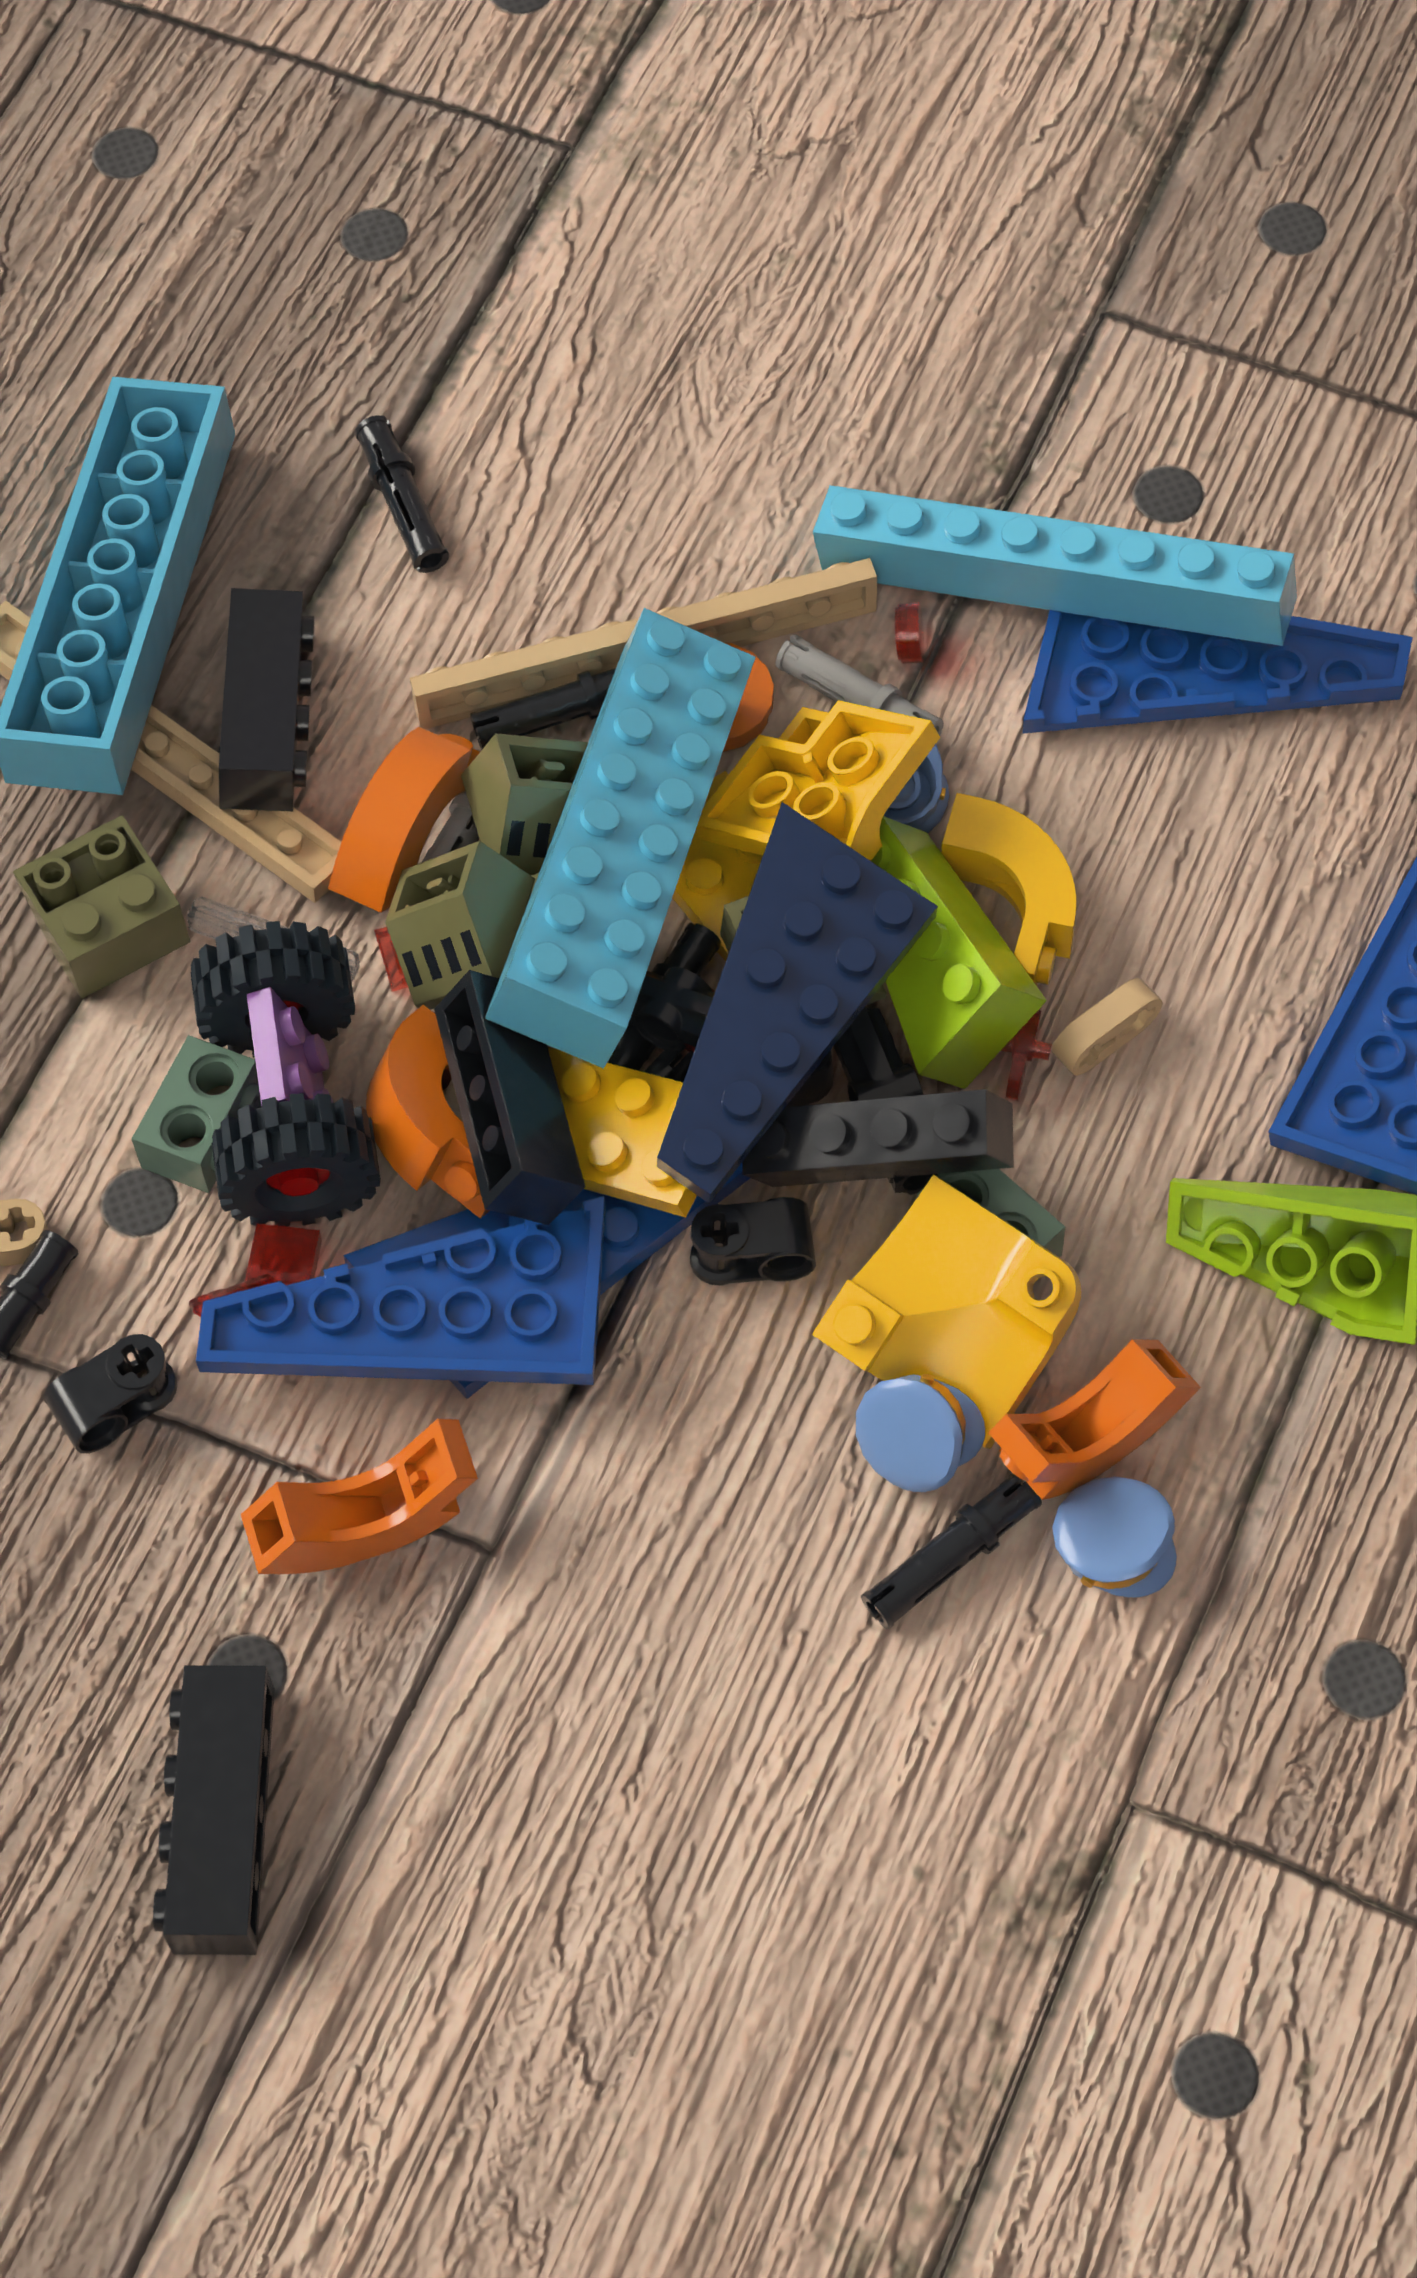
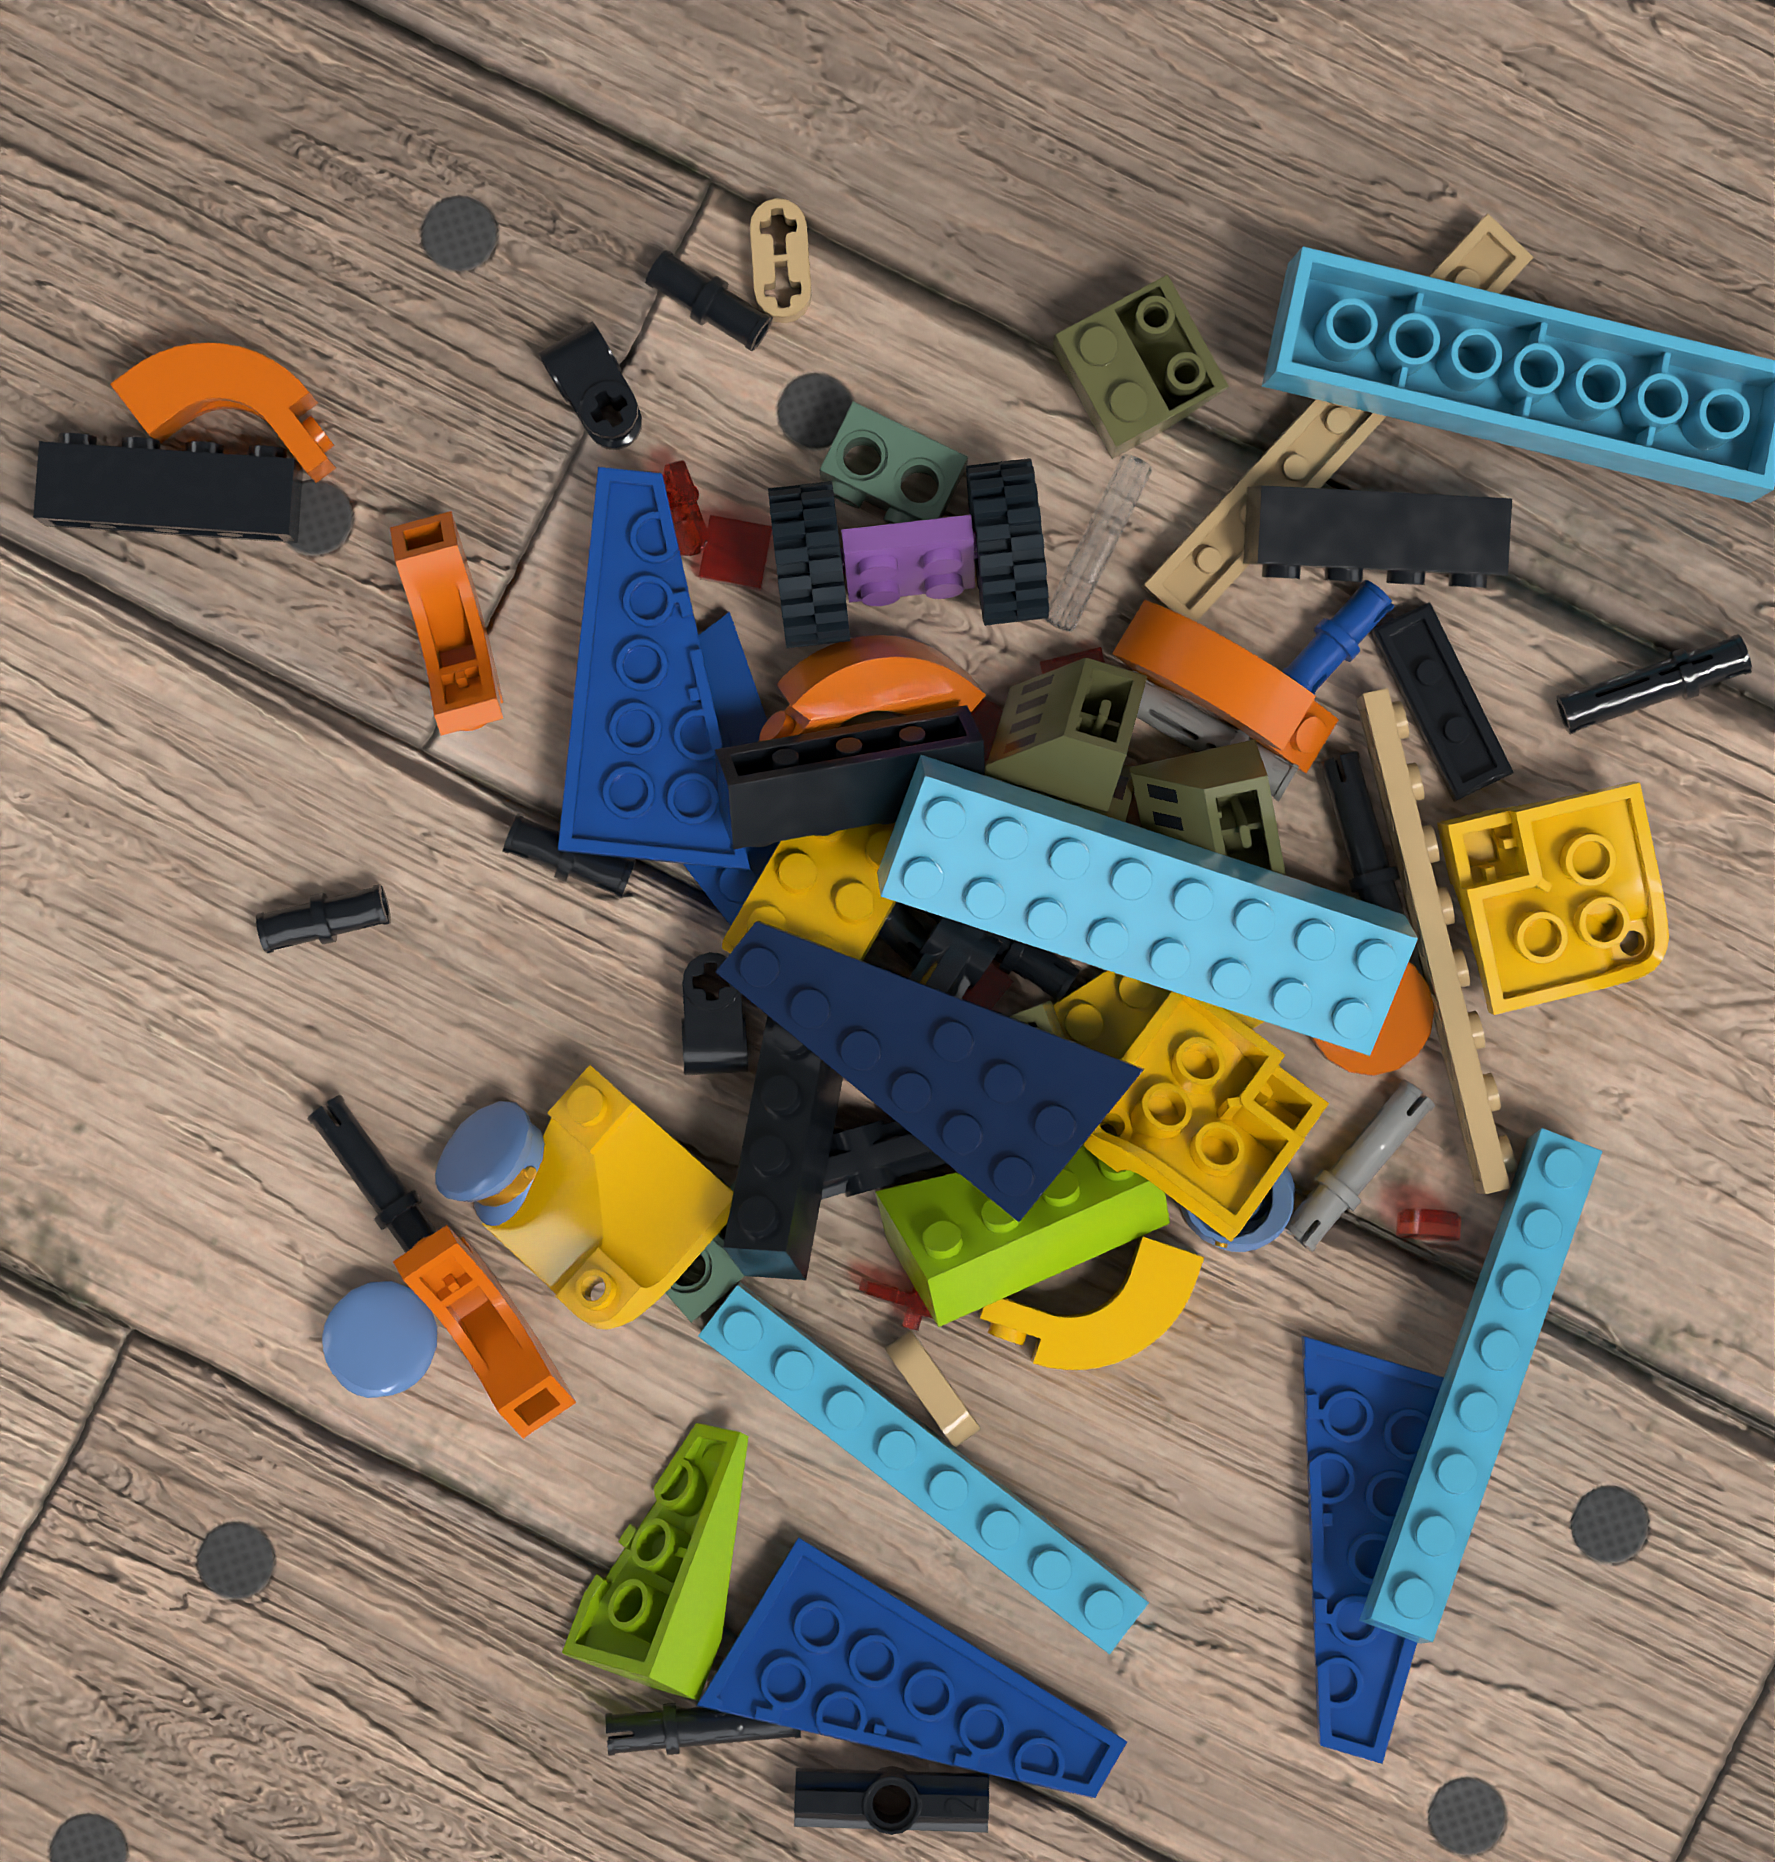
camera: 90 degrees right, 25 degrees up
(98, 1750) = (208, 377): none -> orange arch
(361, 735) = (1339, 636): none -> blue pin
(383, 672) = (1441, 701): none -> black tile
(594, 1402) = (540, 846): none -> black pin
(595, 542) = (1556, 893): none -> yellow slope
(675, 1624) = (323, 918): none -> black pin
(1184, 1025) = (924, 1468): none -> medium azure brick

